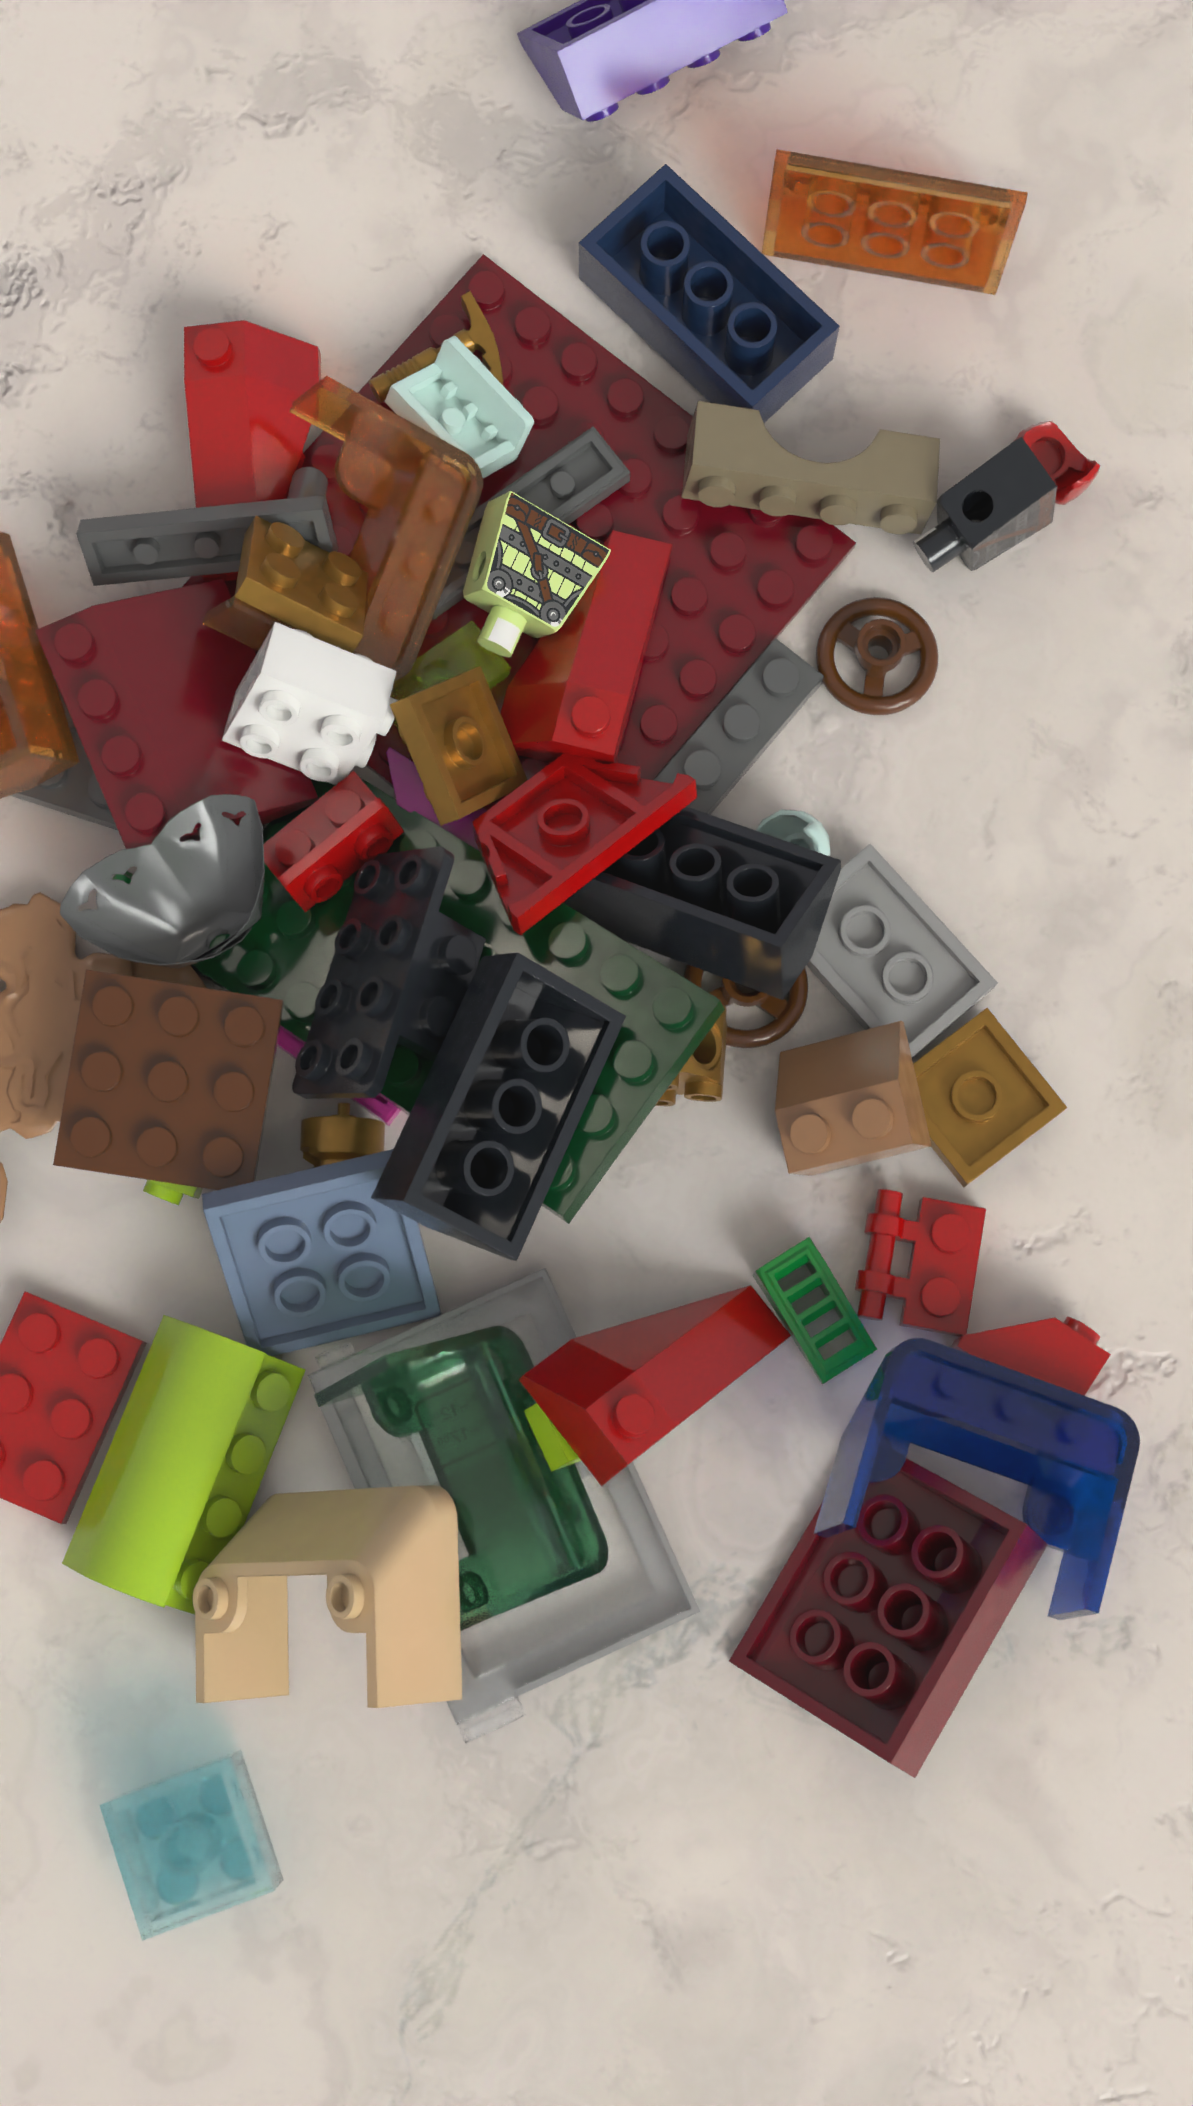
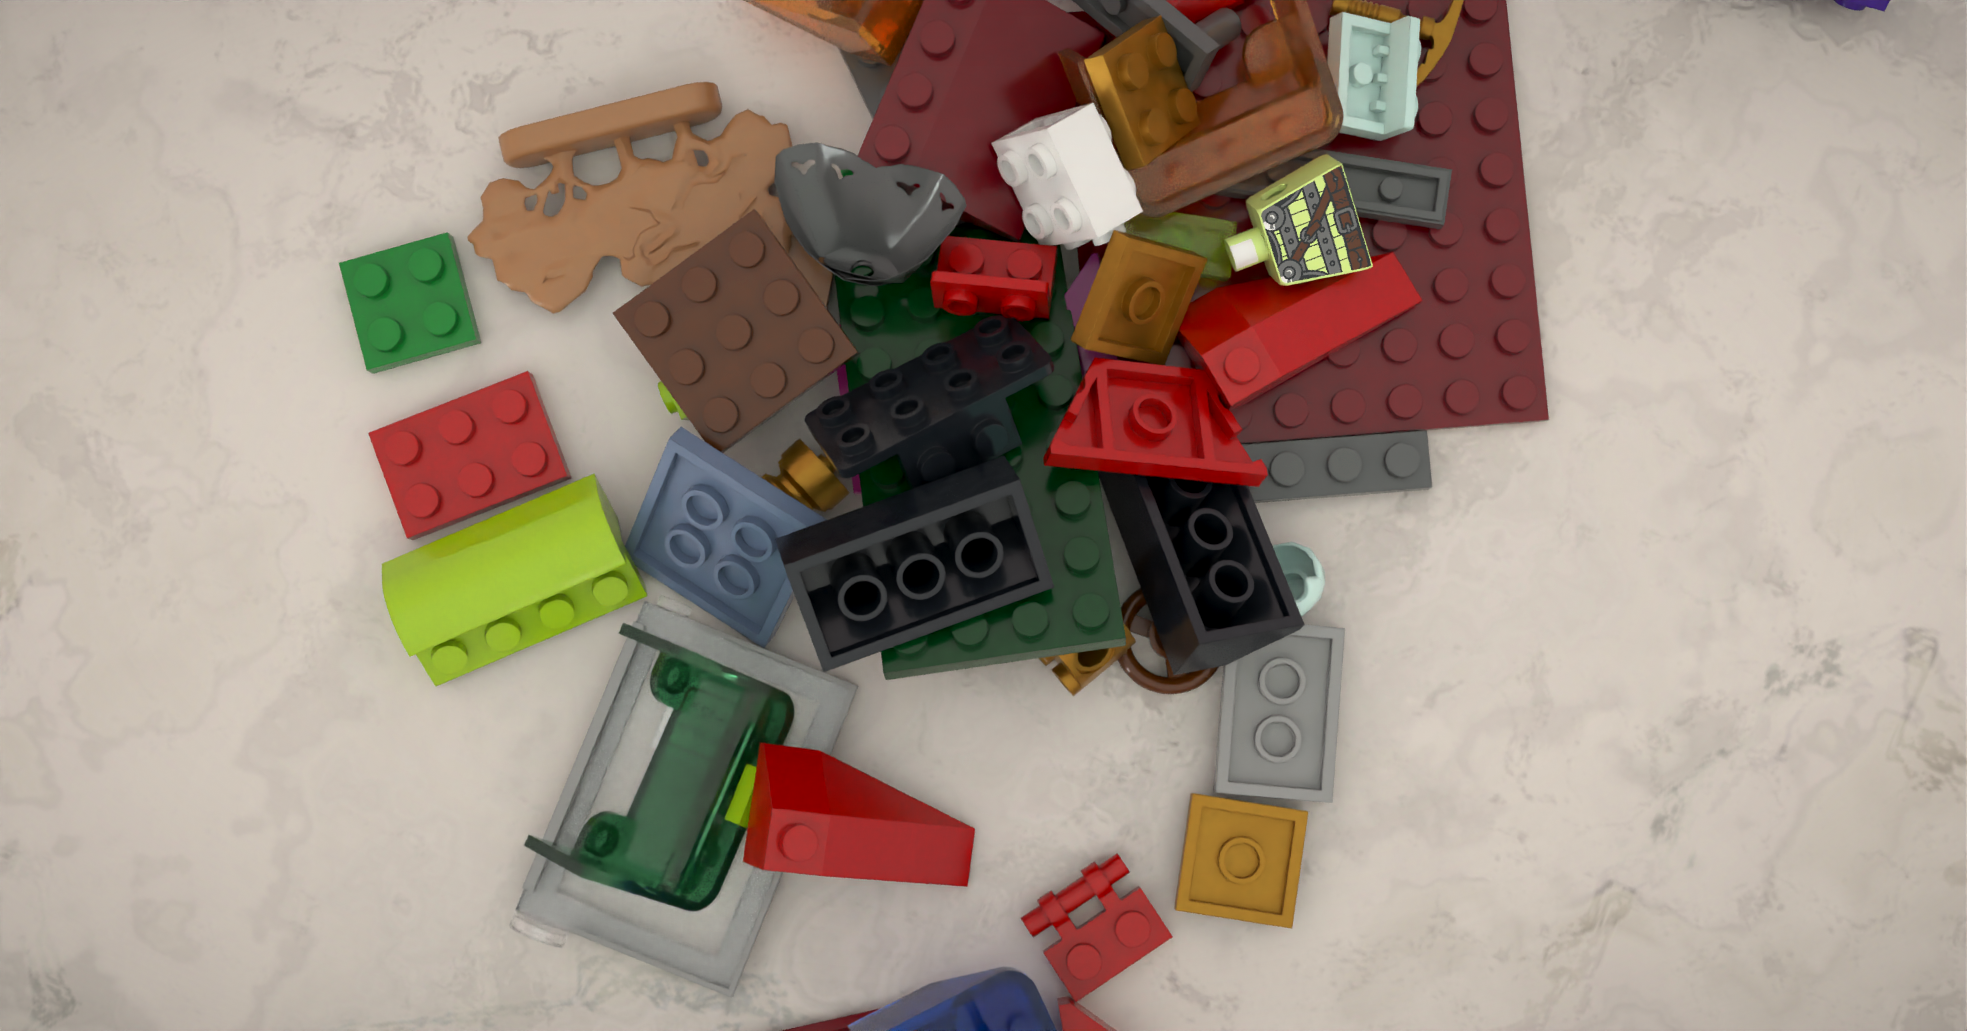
camera: 55 degrees right, 5 degrees up
(191, 1844) = (287, 815): clear light blue brick -> none
(388, 1576) = (547, 785): tan windscreen -> none
(706, 297) = (1617, 158): dark blue brick -> none
(741, 465) = (1521, 292): dark tan arch -> none
(822, 1277) = (1007, 840): green slope -> none
(849, 1101) = (1155, 779): medium nougat slope -> none
(883, 634) = (1503, 508): reddish brown piece -> none
(890, 222) = (1798, 227): clear orange slope -> none
(1008, 497) = (1681, 489): black torso -> none
(1061, 460) = (1737, 498): red hair -> none

